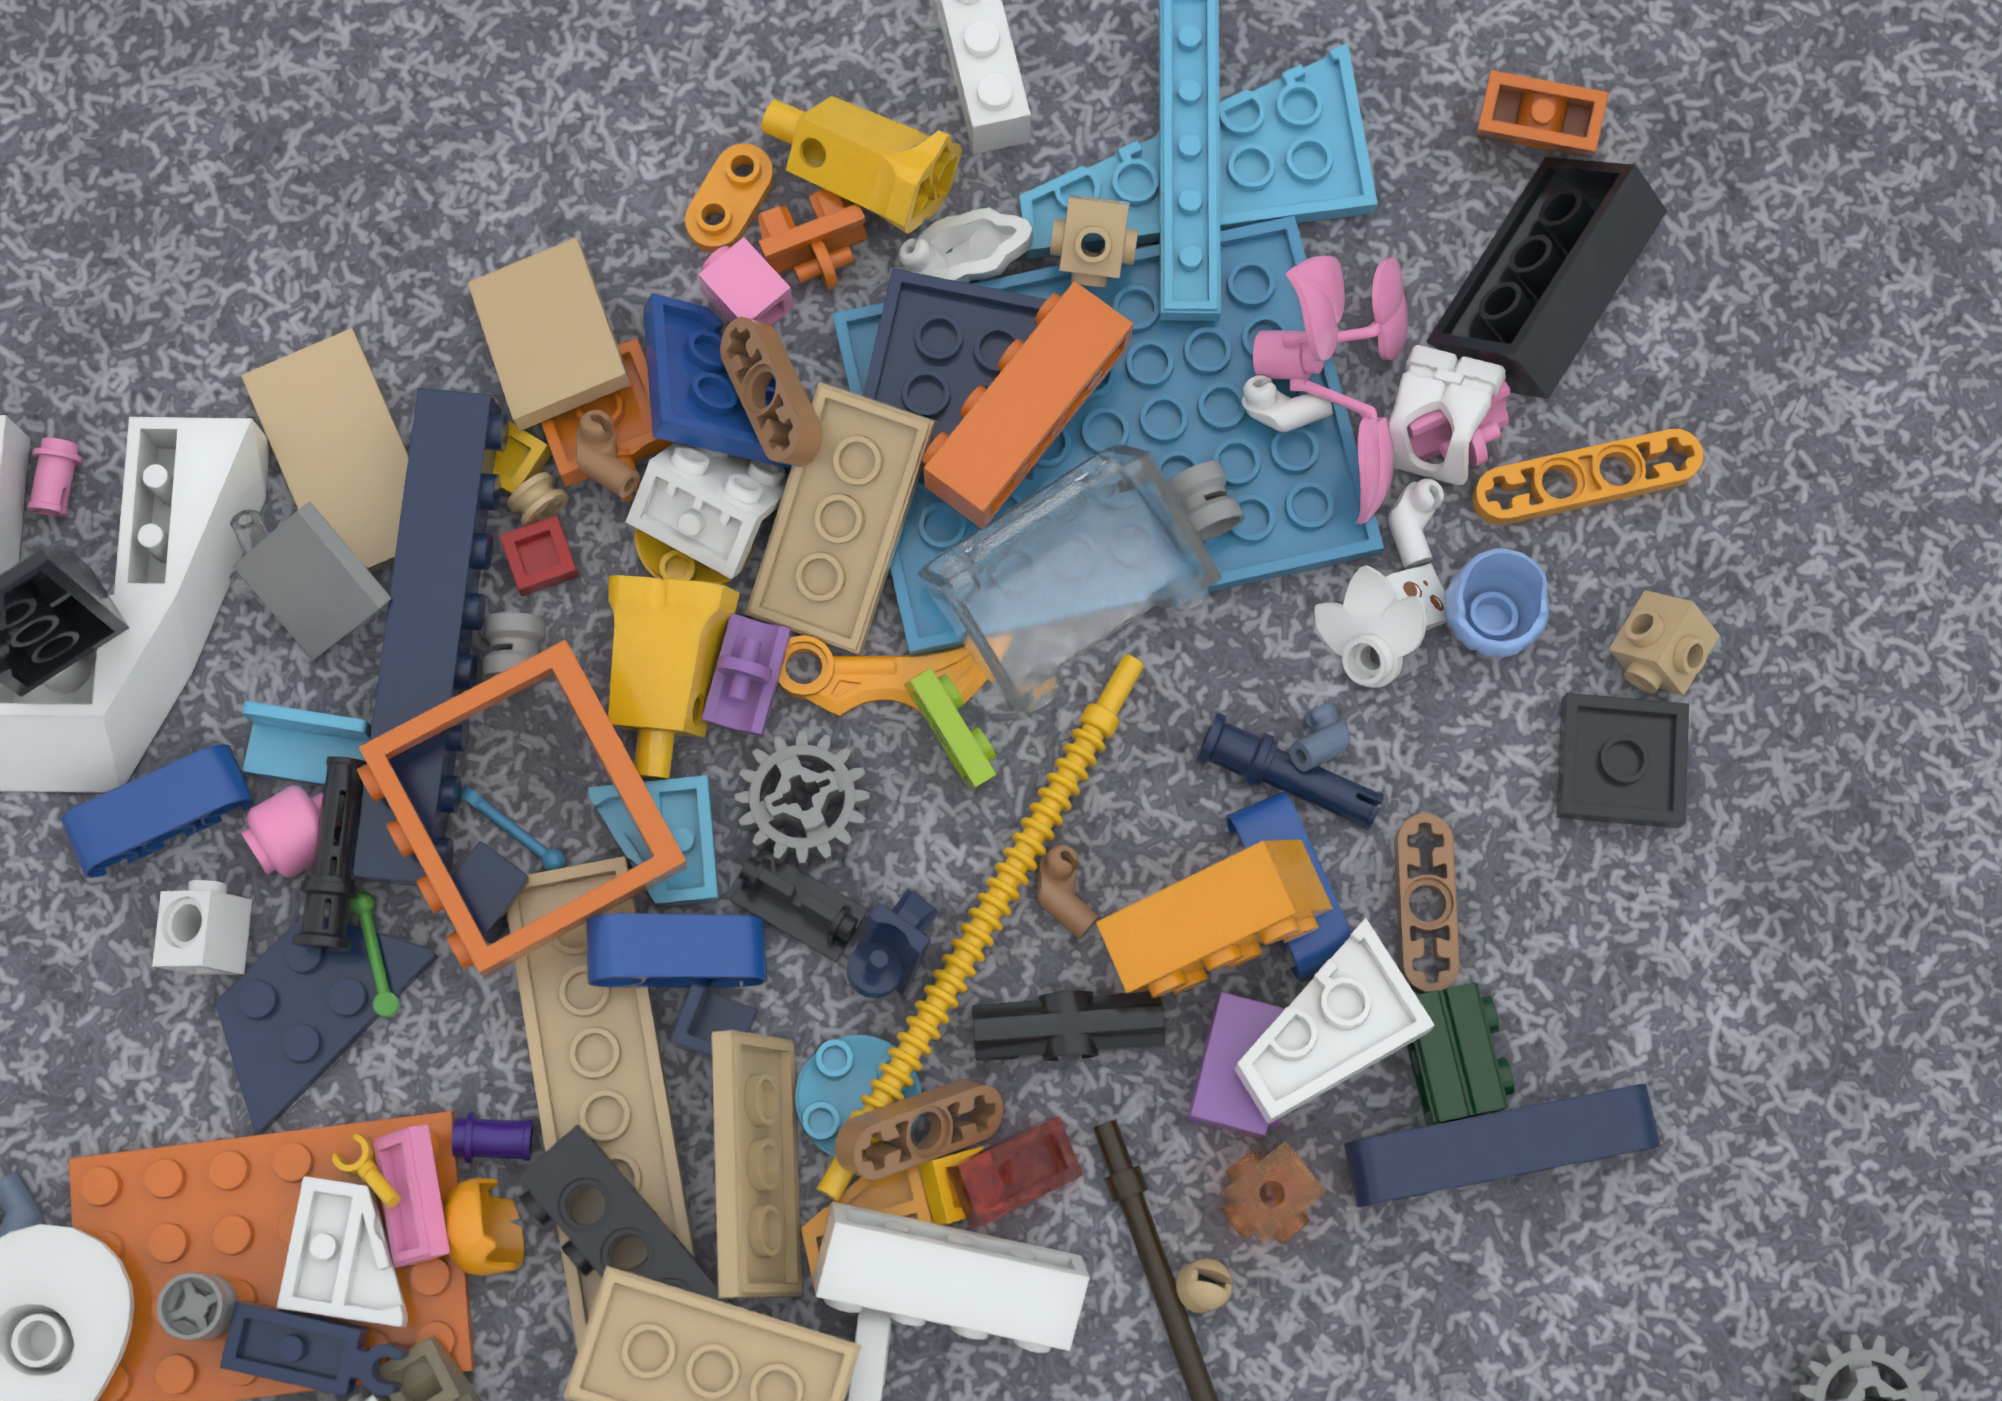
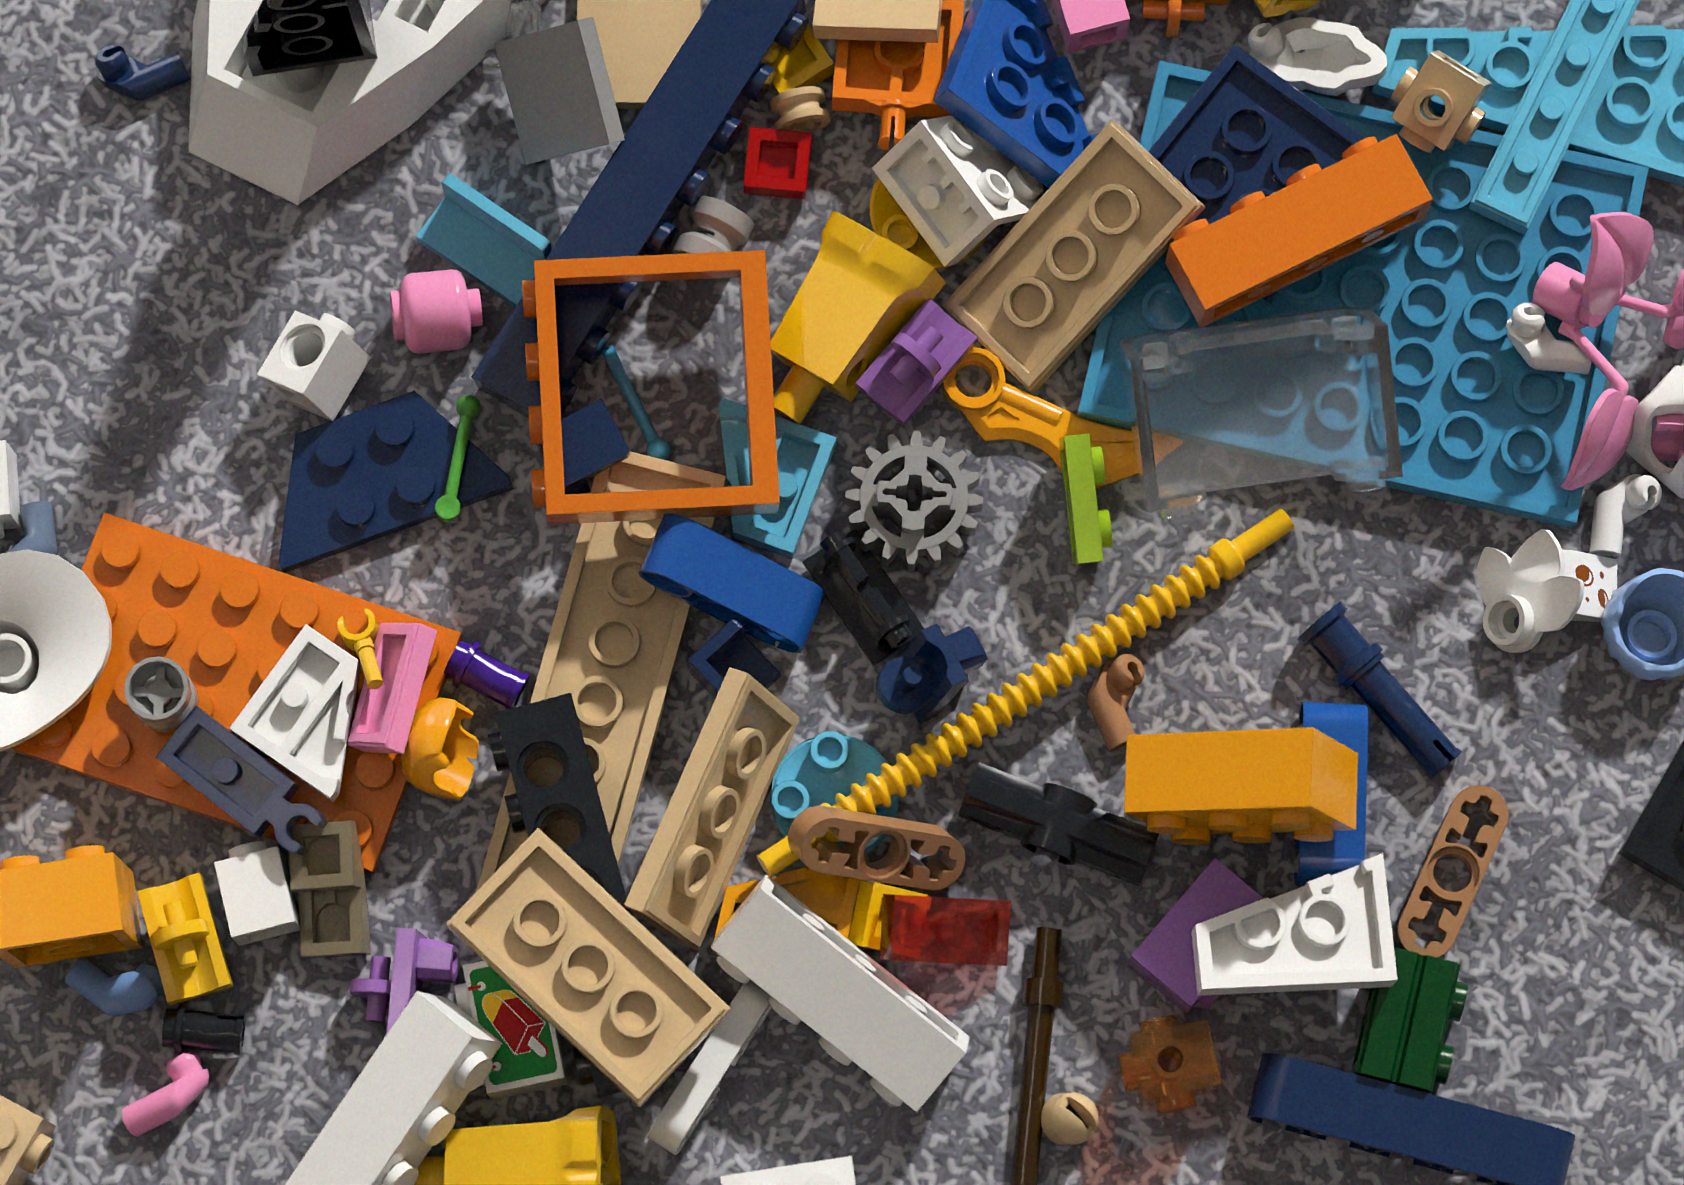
camera: 30 degrees right, 0 degrees up
(155, 808) = (324, 234): blue beam -> none
(320, 886) = (441, 375): black pin -> none
(598, 454) = (876, 93): medium nougat arm -> none
(790, 402) = (1063, 147): medium nougat beam -> none
(1205, 499) = (1424, 397): light grey wheel -> none
(1327, 740) = (1432, 677): sand blue arm -> none

